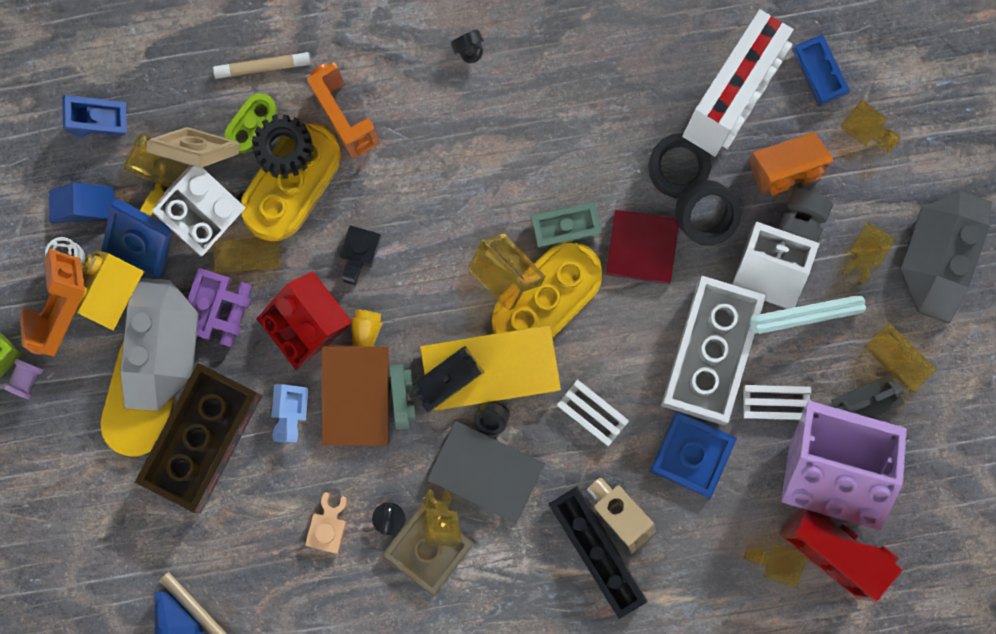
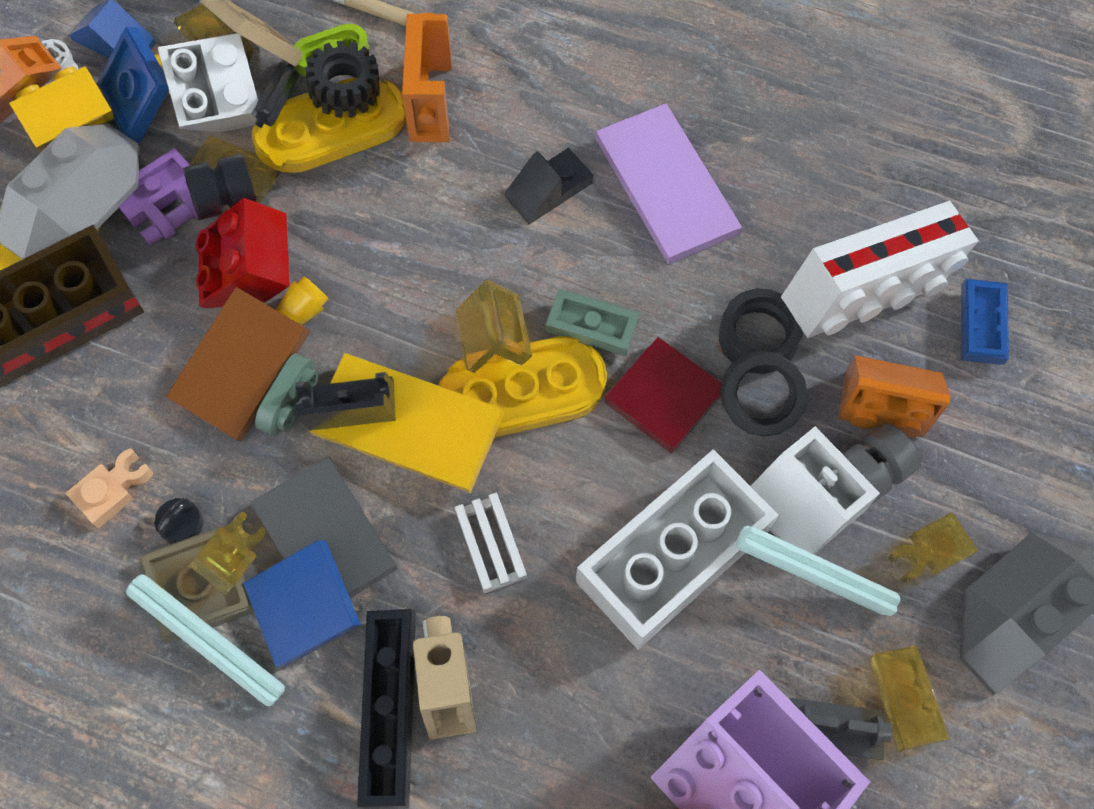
camera: 25 degrees right, 15 degrees down
(245, 189) = (275, 95): none -> black axle
(259, 281) = (218, 186): none -> black wheel
(289, 406) = (161, 335): light blue plate -> none
(359, 250) = (351, 226): black plate -> none
(461, 580) = (205, 640): none -> light aqua axle
(463, 43) = (602, 91): black tile -> none
(472, 138) = (547, 184): none -> black slope
(492, 418) = (370, 477): black tile -> none
(505, 523) = (301, 604): none -> blue tile
(552, 87) = (668, 183): none -> lavender tile
(693, 455) = (579, 663): blue tile -> none
(747, 401) = (722, 642): white tile -> none
(866, 125) = (1011, 409): clear yellow plate -> none

